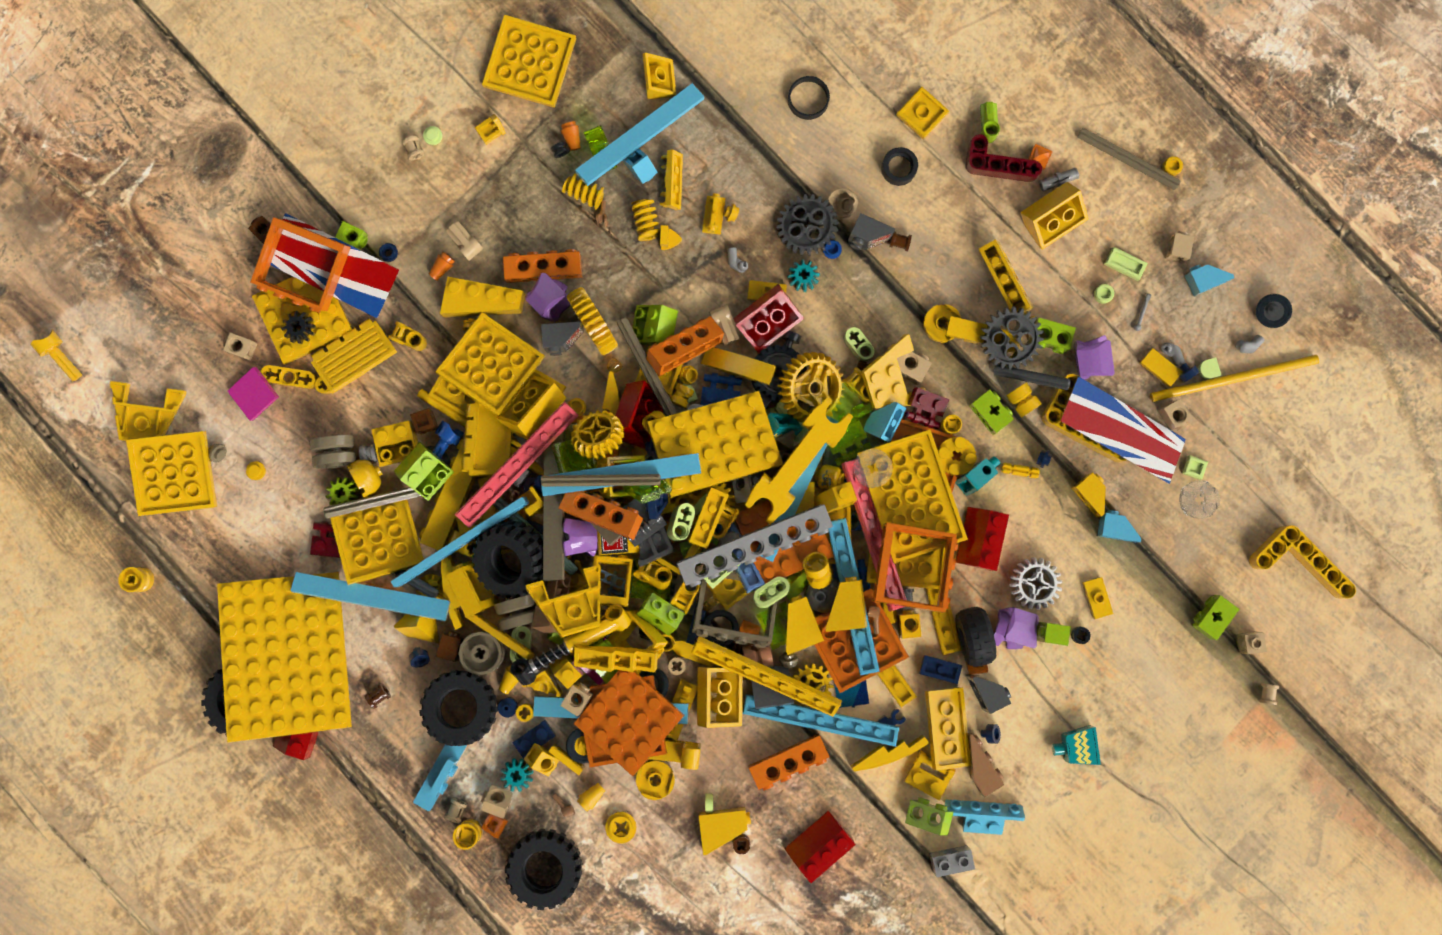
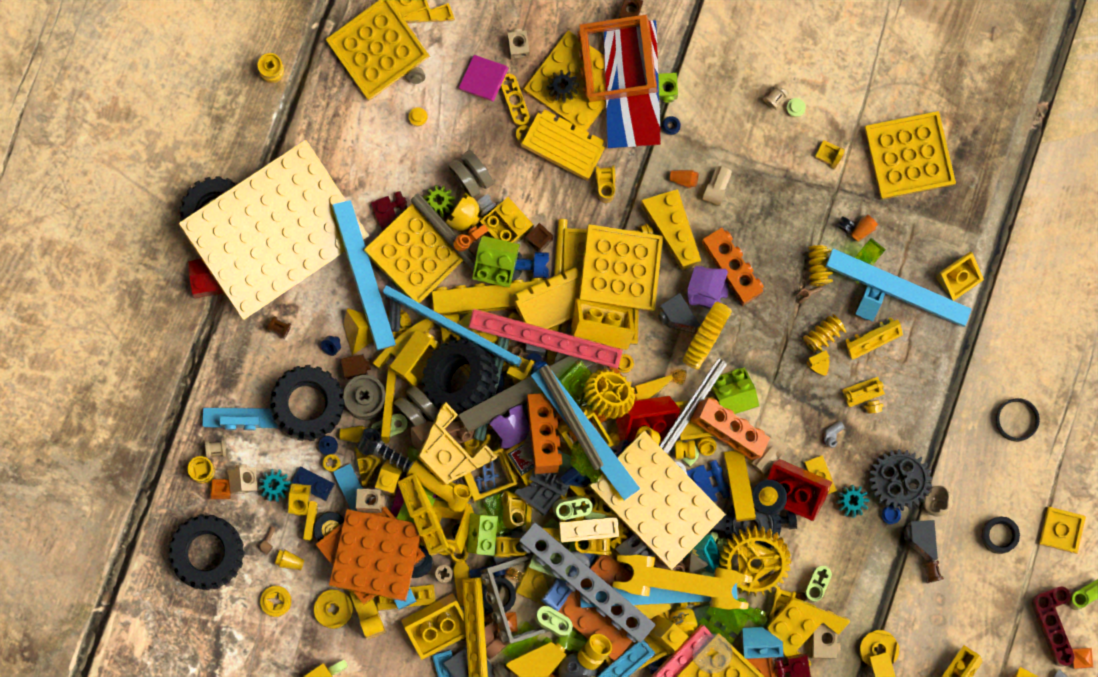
camera: 60 degrees right, 5 degrees down
(390, 490) = (463, 242): none -> orange plate
(763, 344) = (769, 497): none -> black wheel

